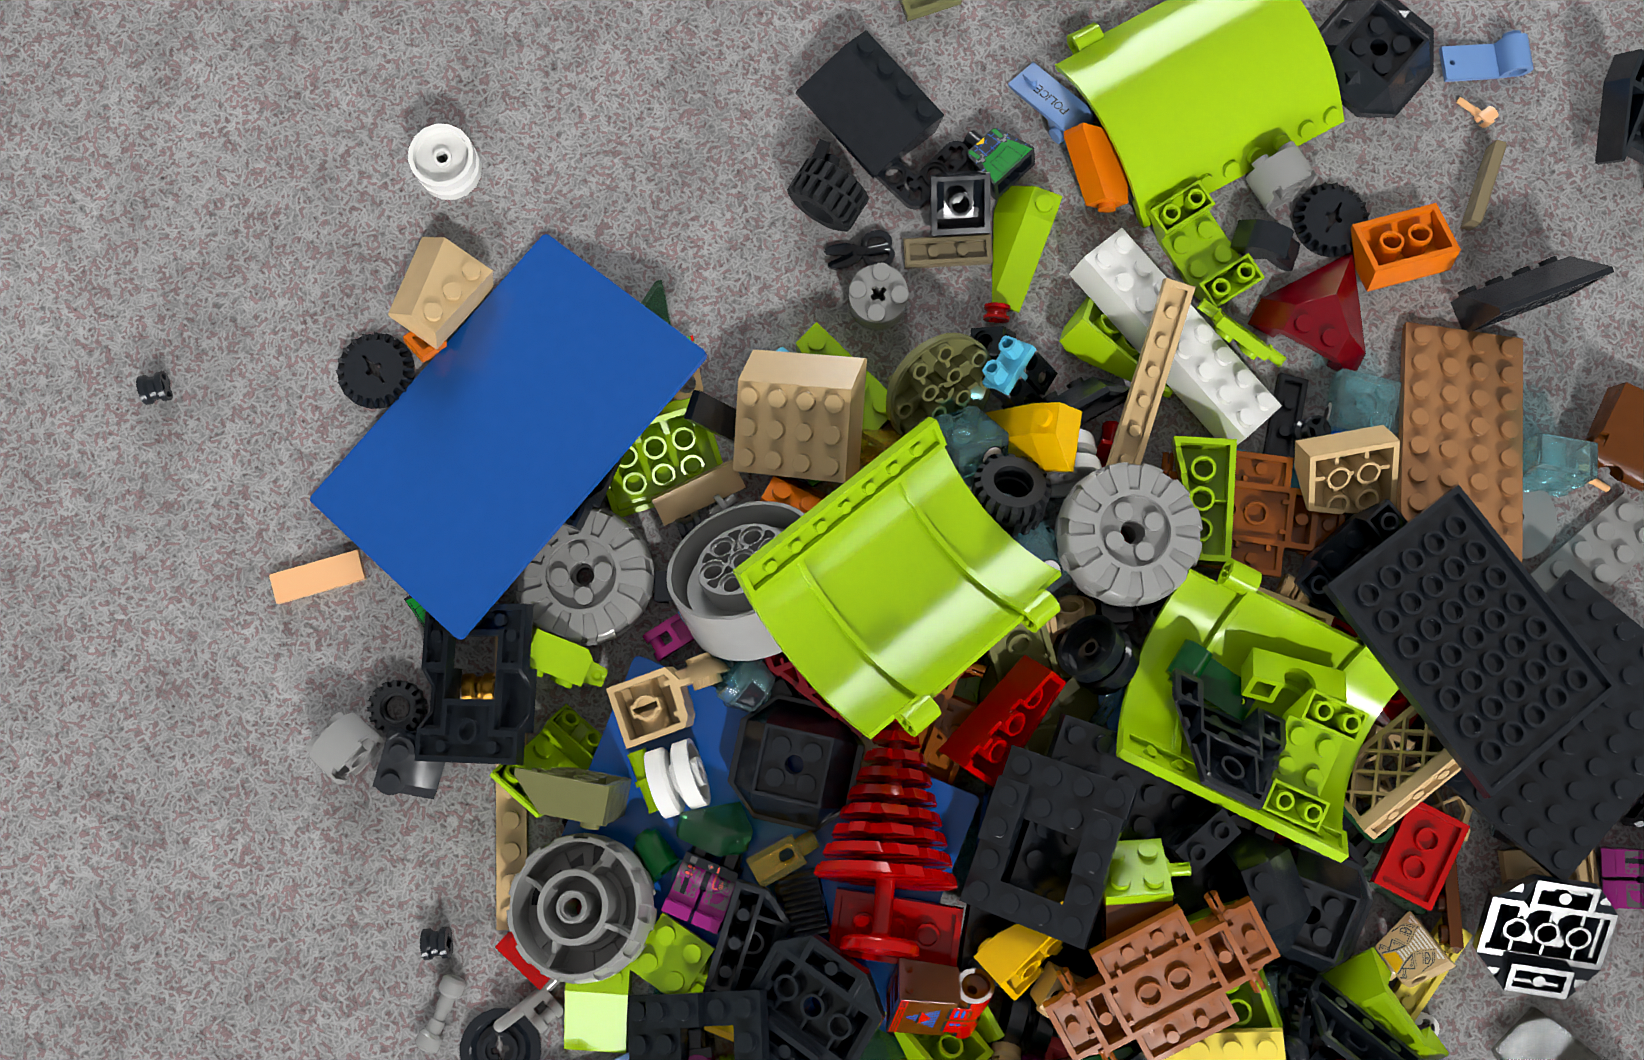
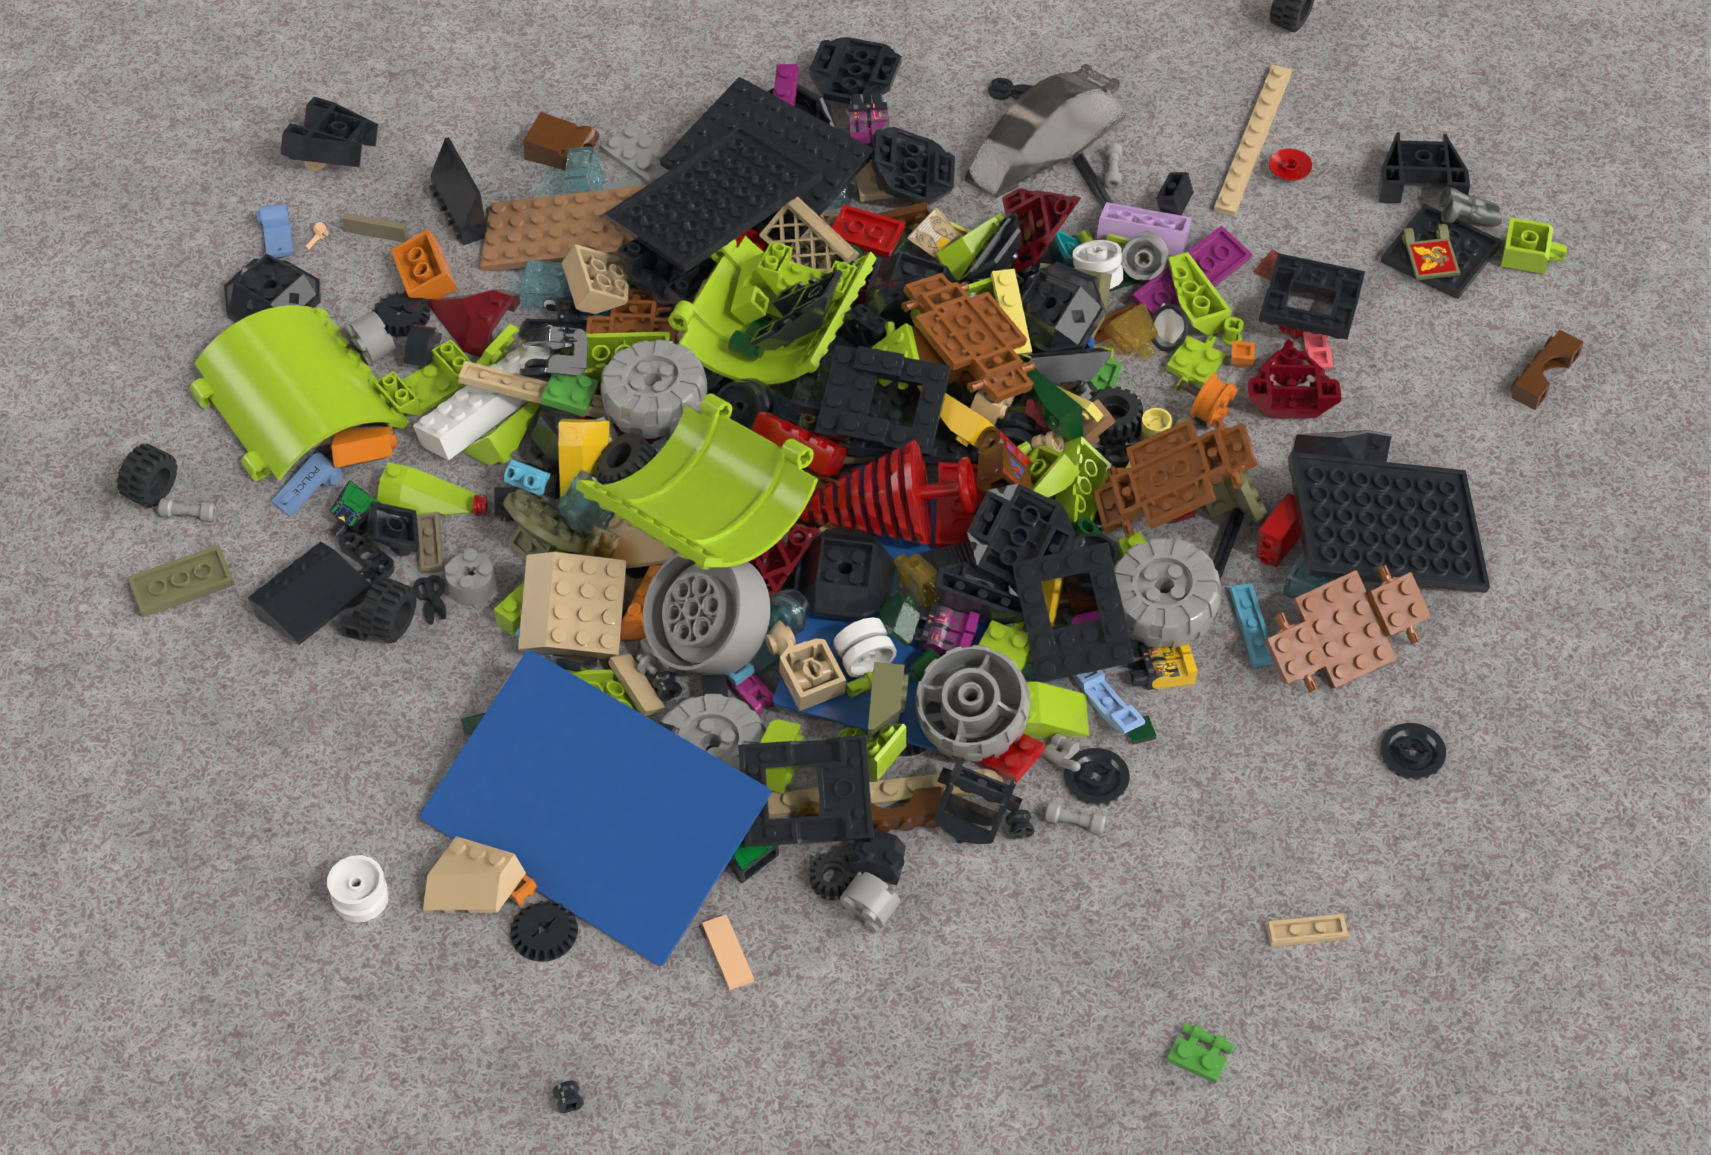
camera: 90 degrees left, 30 degrees down
(452, 915) = (973, 782): none -> black animal
(473, 827) = (916, 813): none -> reddish brown arch
(1140, 424) = (570, 393): none -> bright green plate
(1199, 402) = (562, 359): none -> animal

